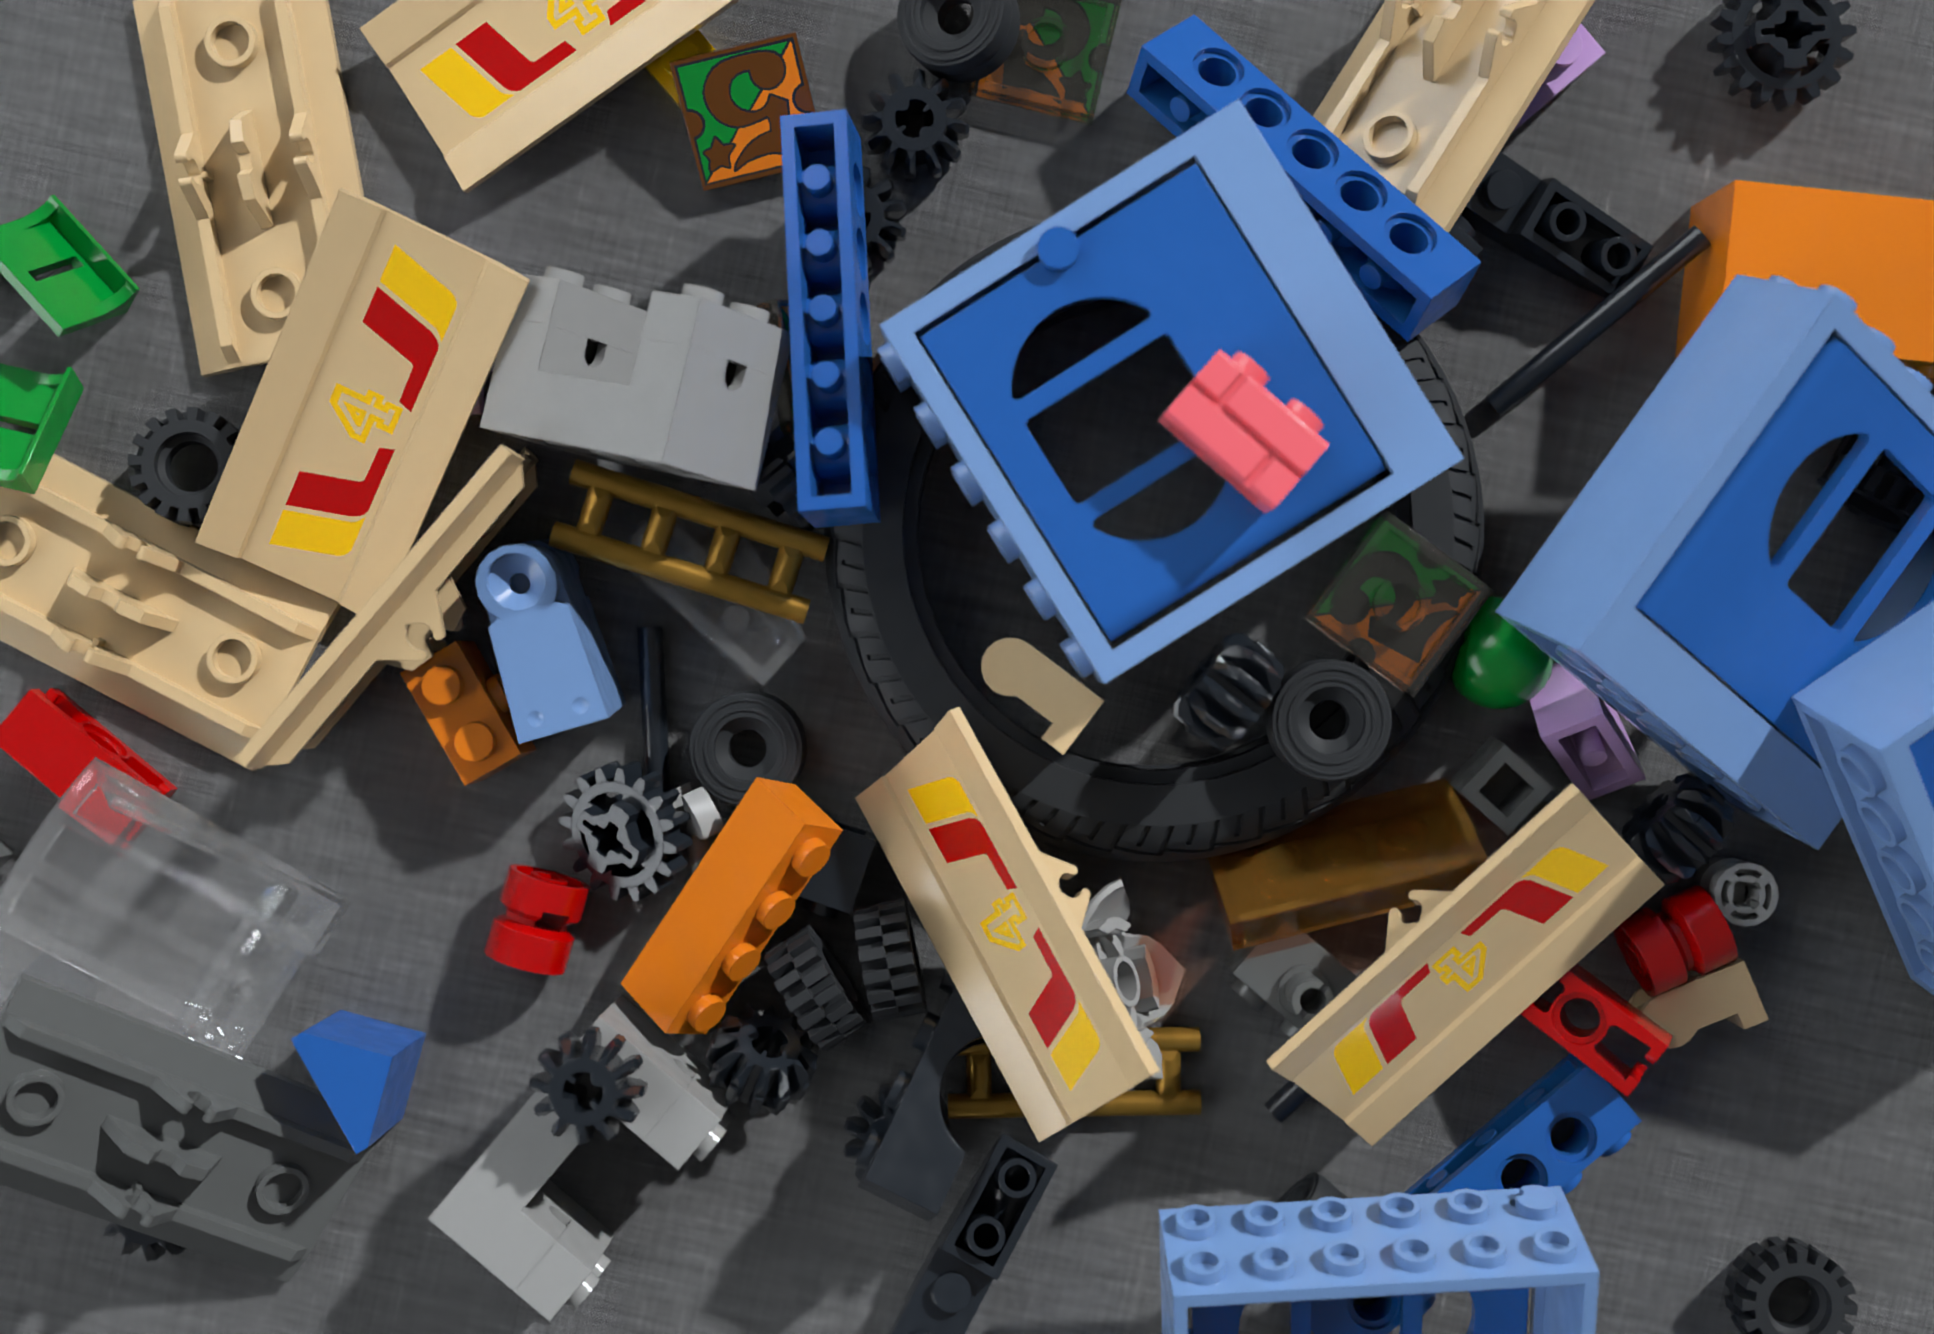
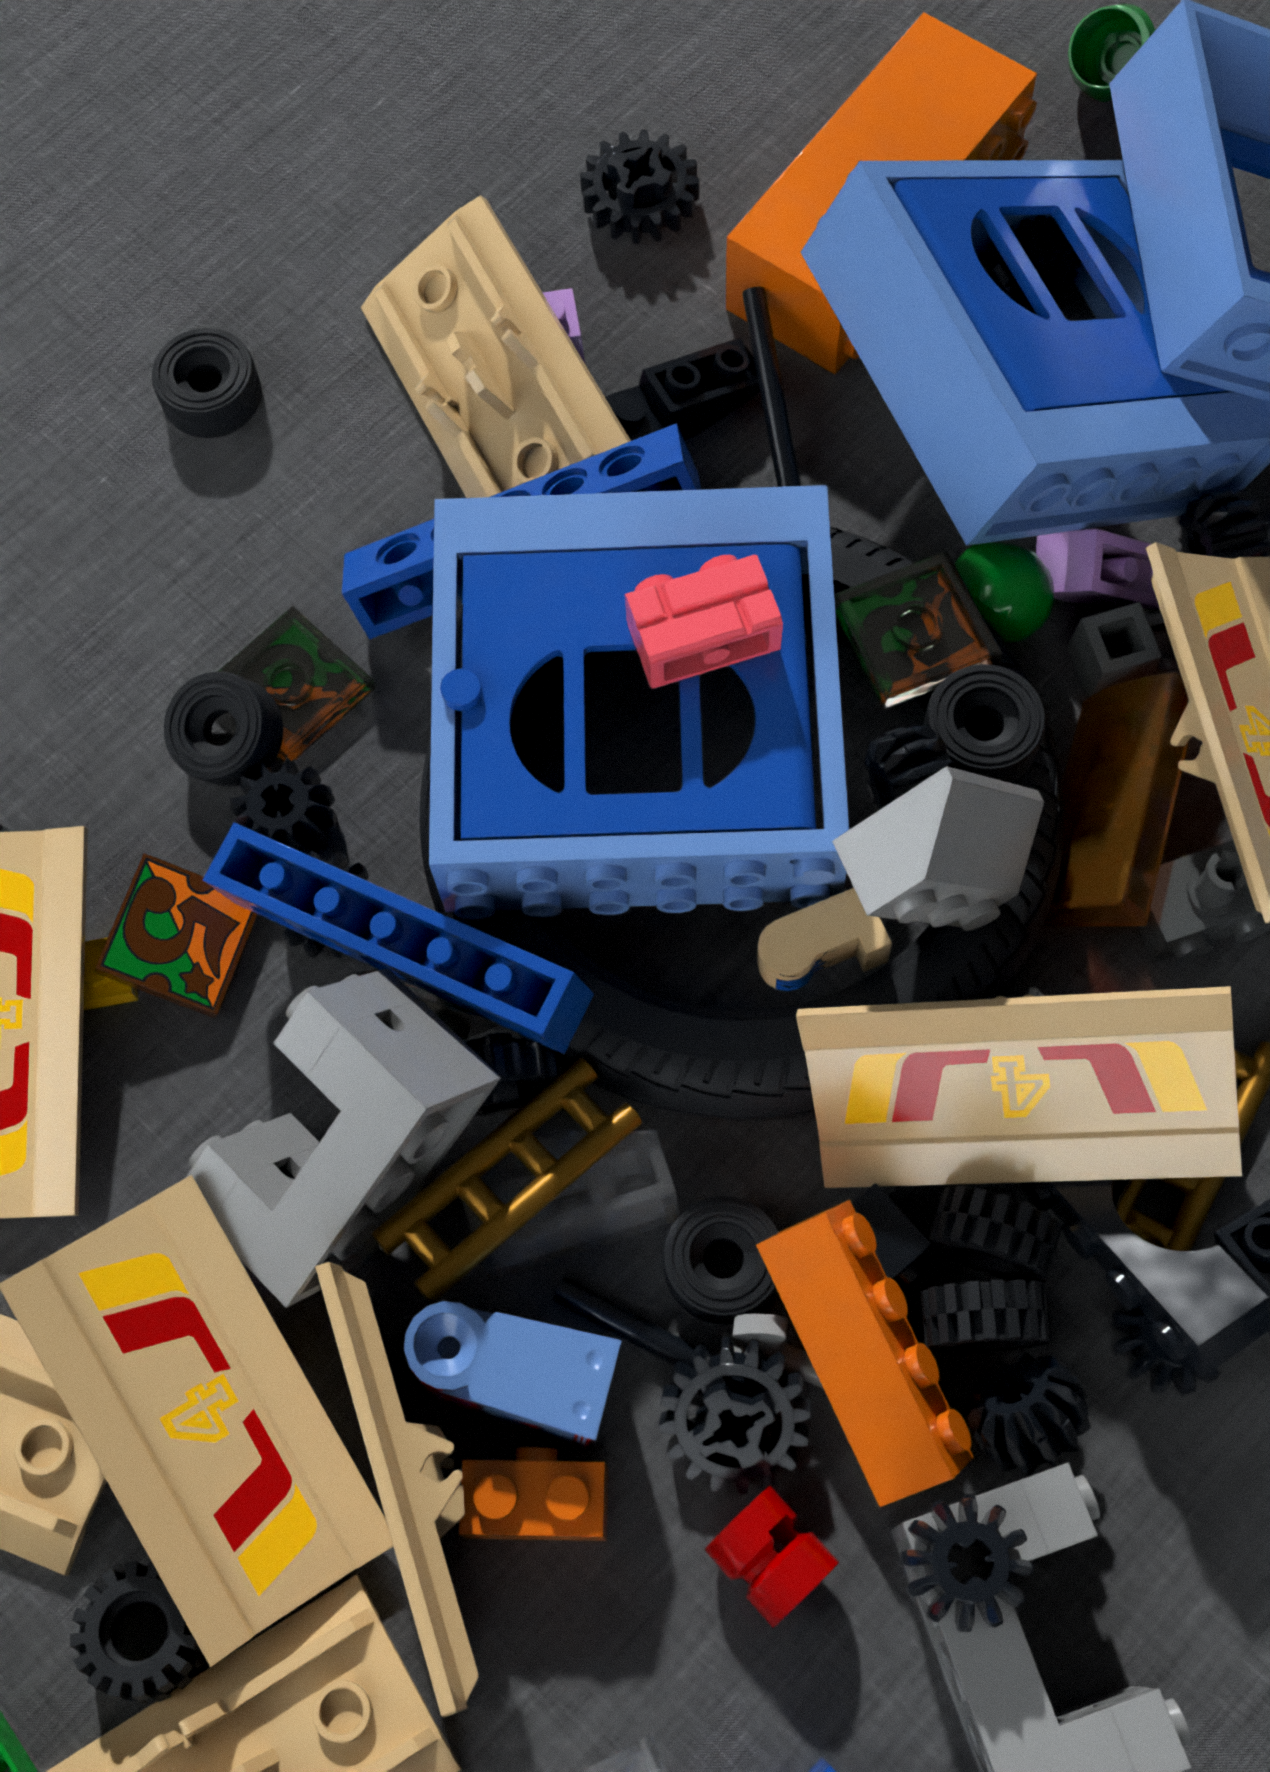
camera: 60 degrees left, 20 degrees down
(1148, 763) = (943, 850): none -> light grey slope

